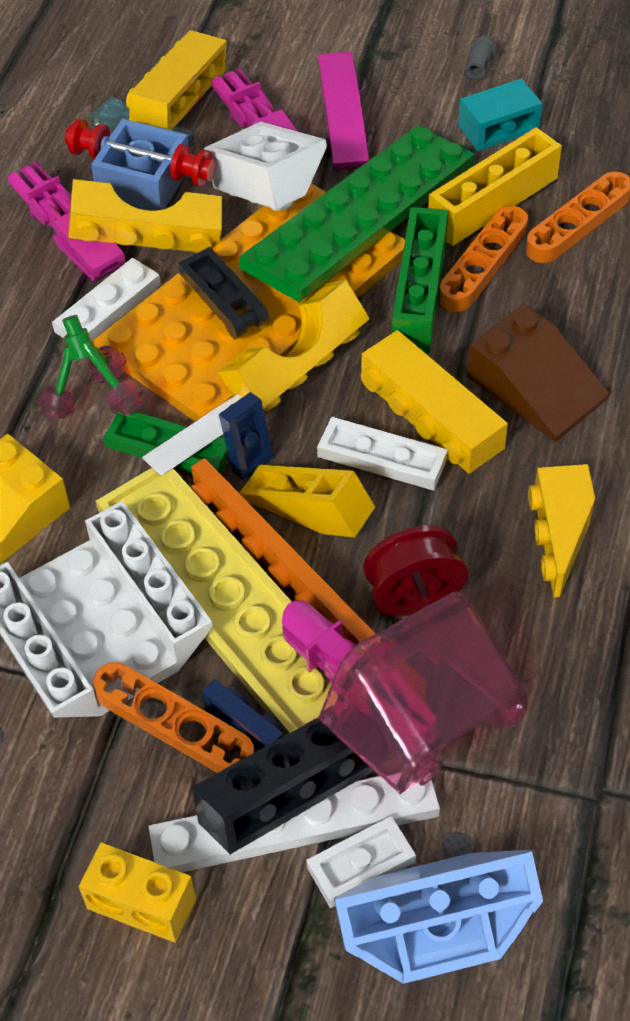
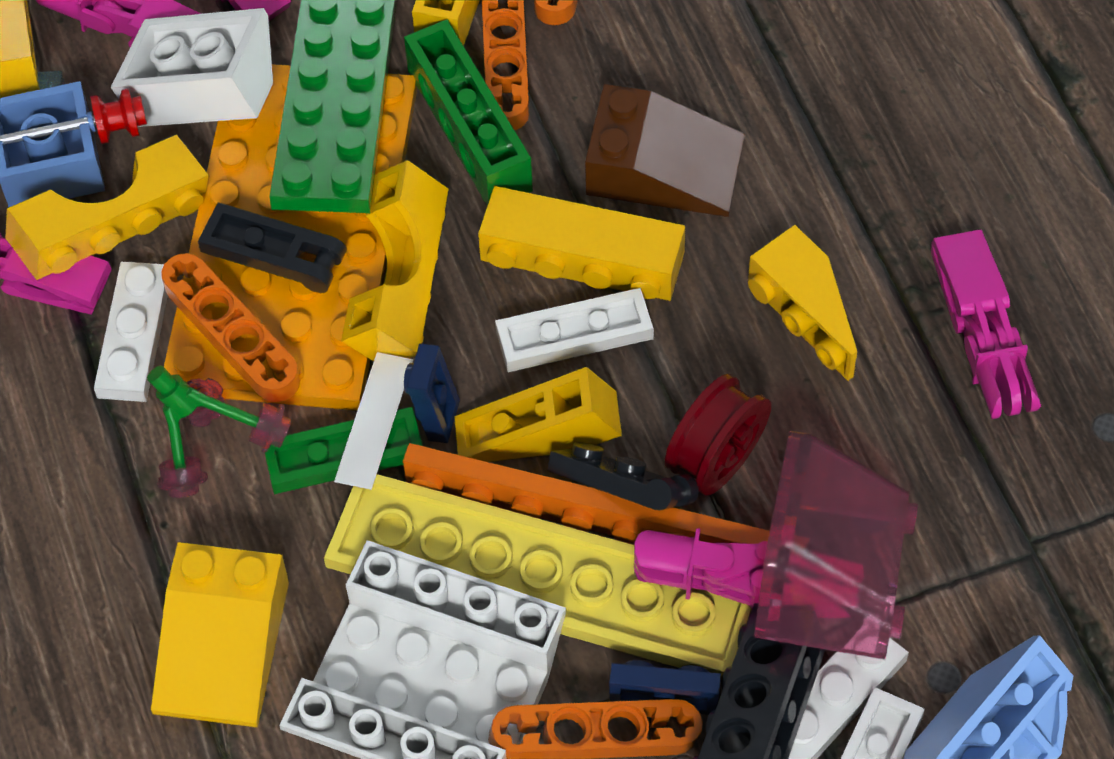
camera: 35 degrees left, 5 degrees up
(157, 326) = (233, 324): none -> orange beam
(327, 562) = (622, 477): none -> black plate

